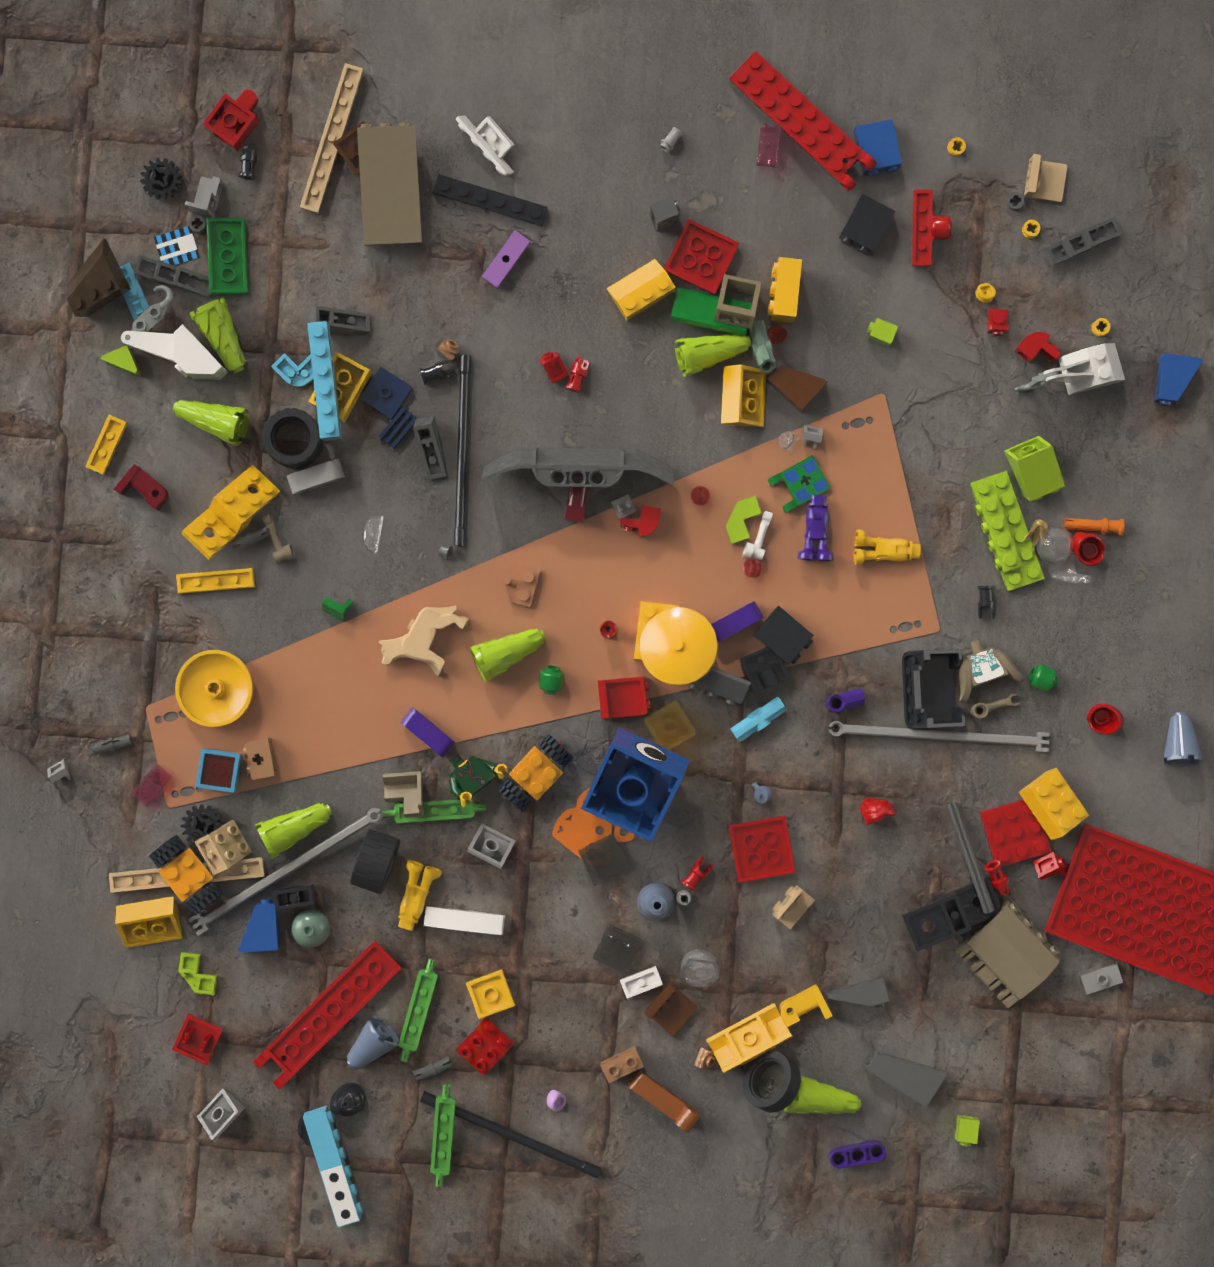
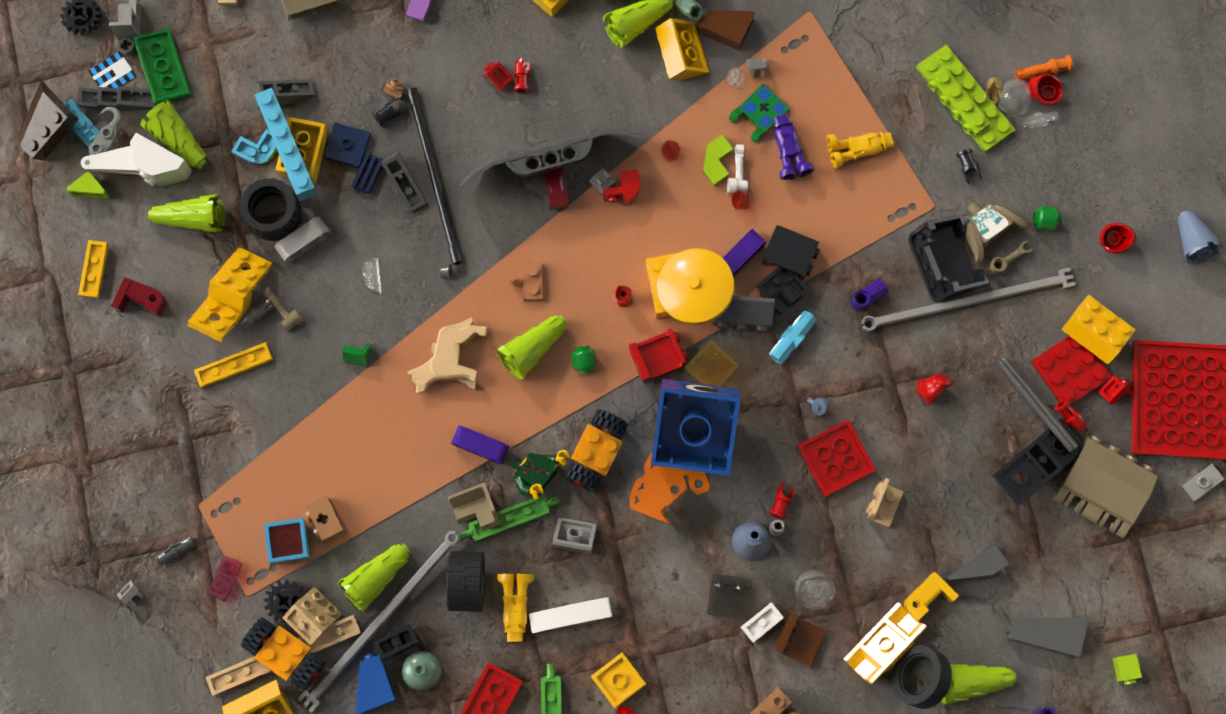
camera: 15 degrees left, 10 degrees down
(214, 688) = (260, 464): yellow dish -> none
(705, 1059) = (849, 679): medium nougat plate -> none
(1035, 468) = (972, 33): lime slope -> none

